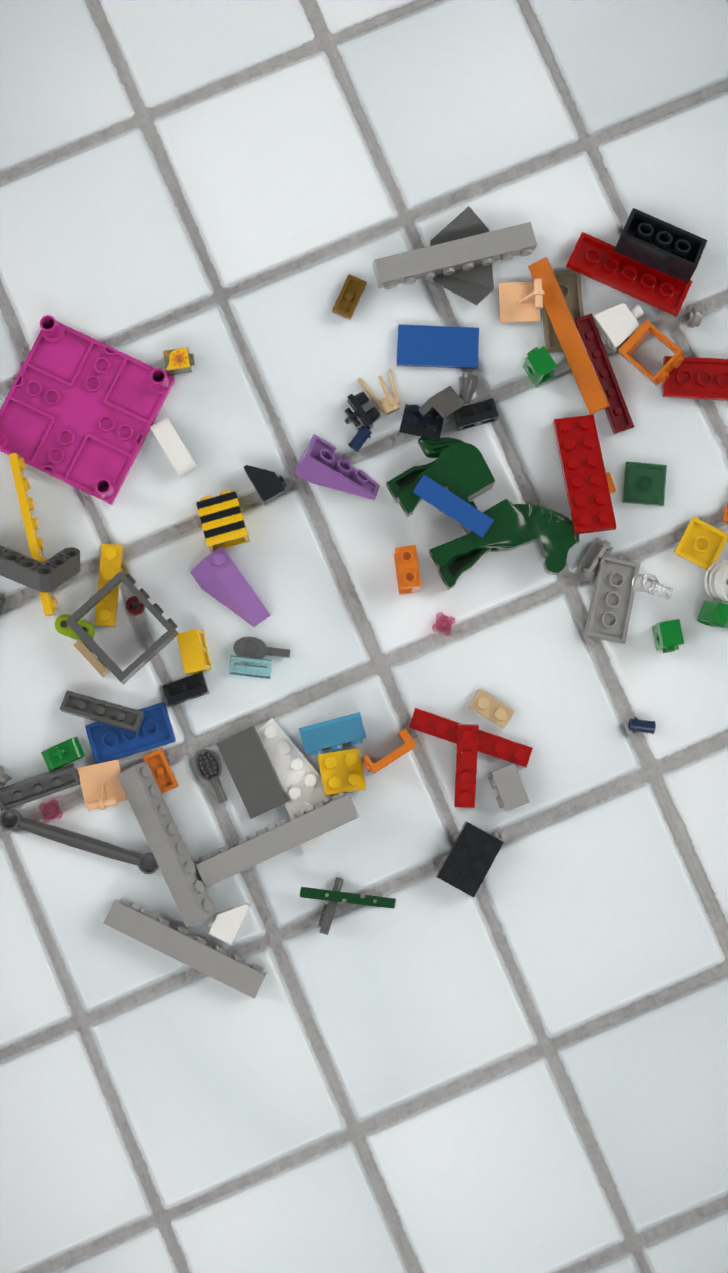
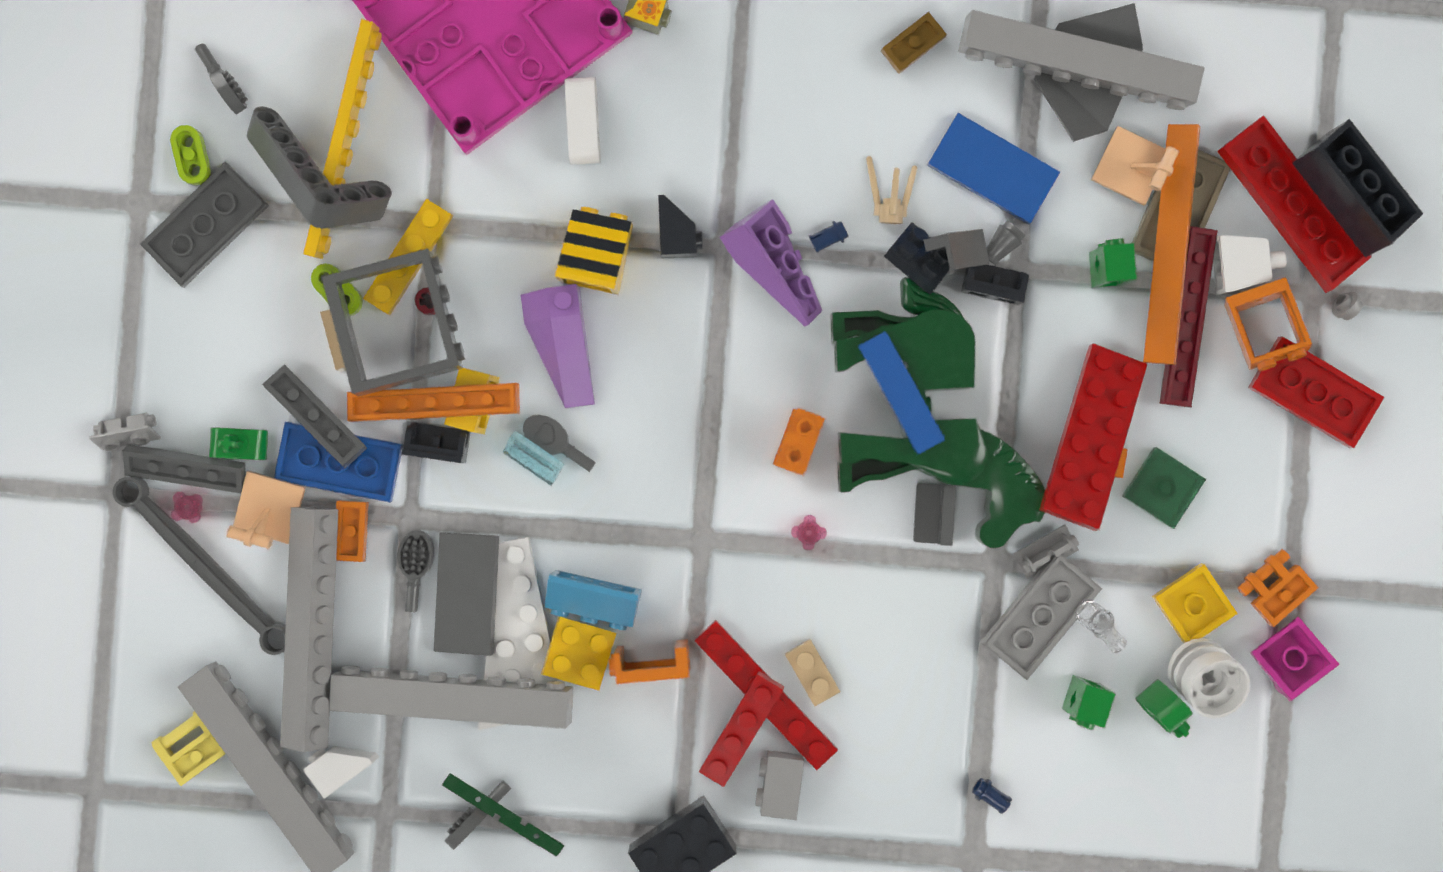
camera: 30 degrees right, 5 degrees up
(136, 962) = (194, 756): none -> light yellow plate
(171, 664) = (434, 402): none -> orange tile
(356, 403) = (852, 214): black hips -> none
(514, 572) = (934, 514): none -> dark grey panel

